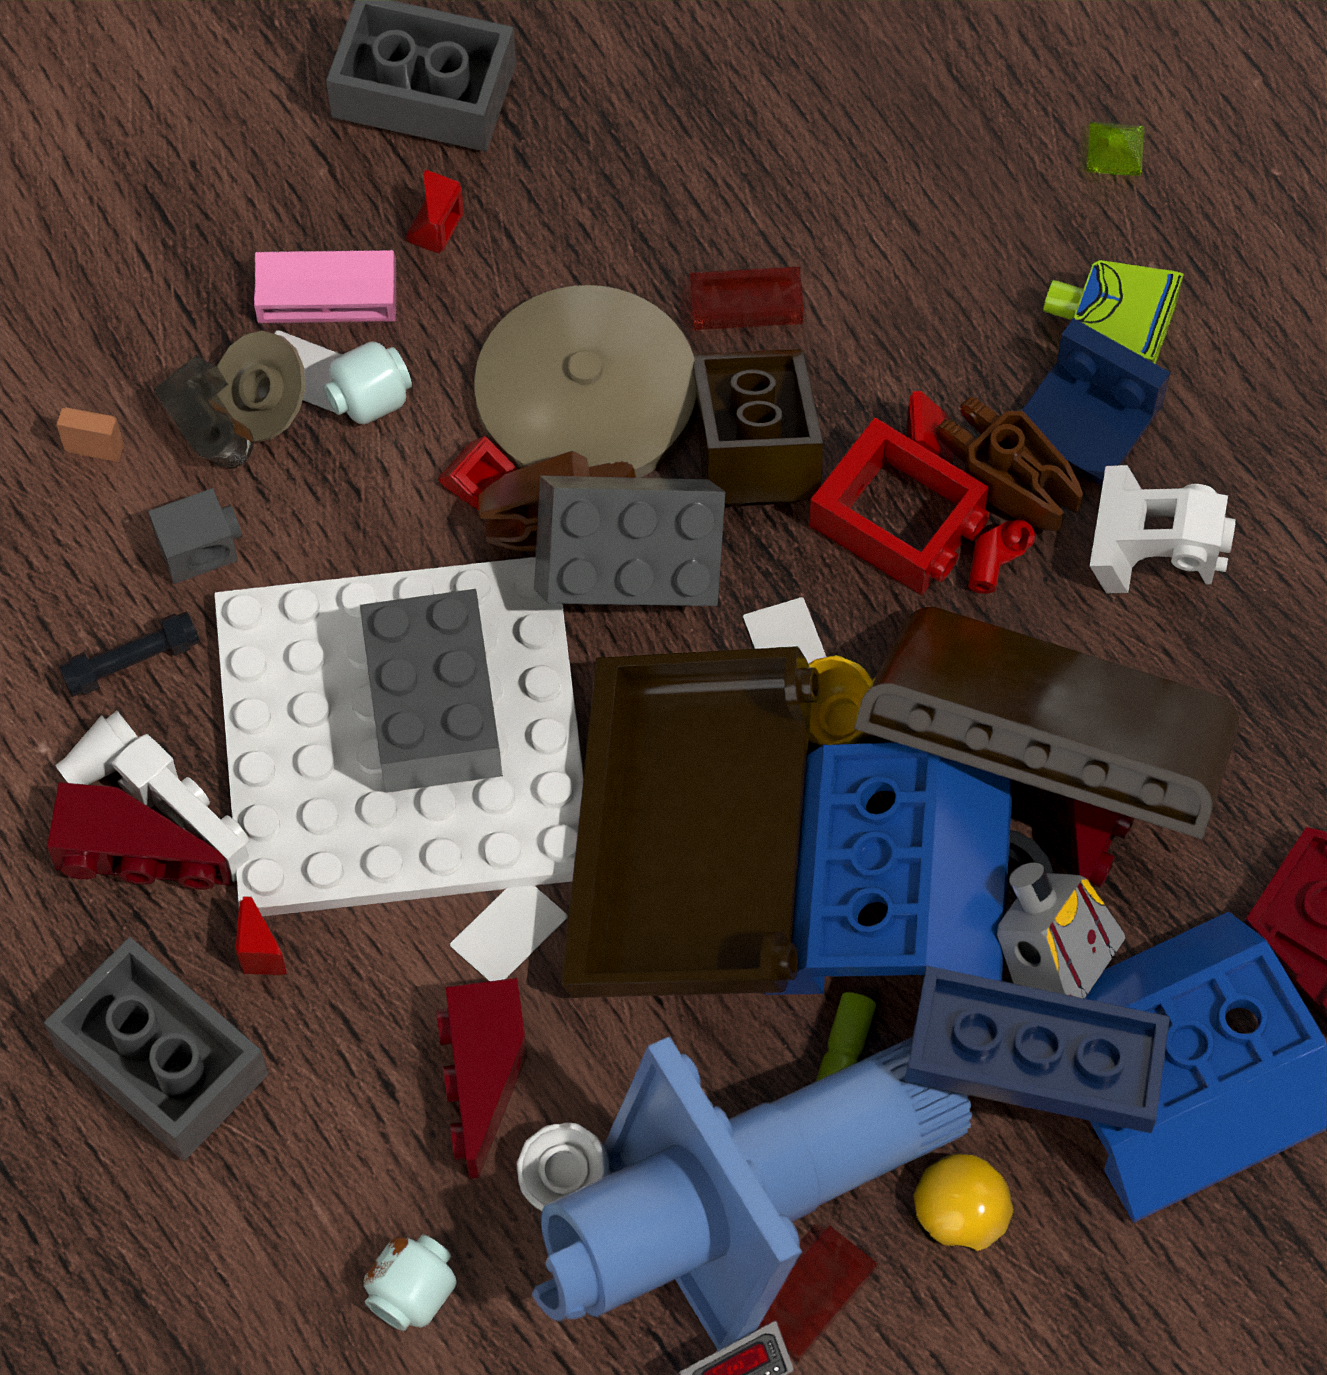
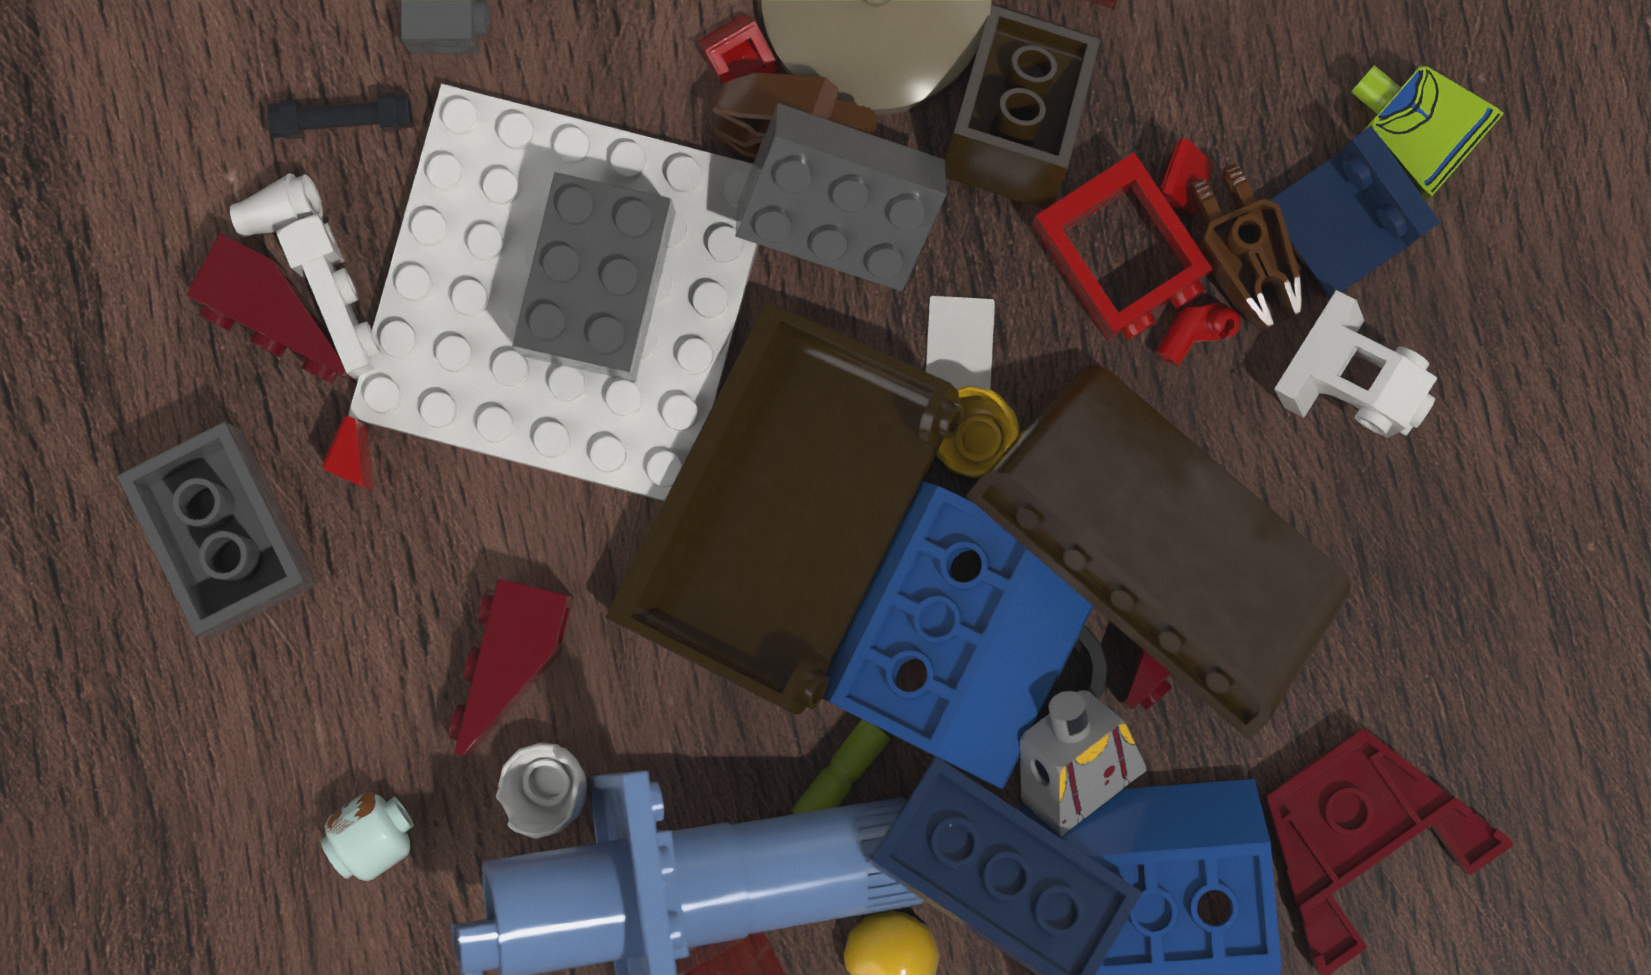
camera: 25 degrees right, 20 degrees up
(508, 931) = (588, 528): white sticker -> none

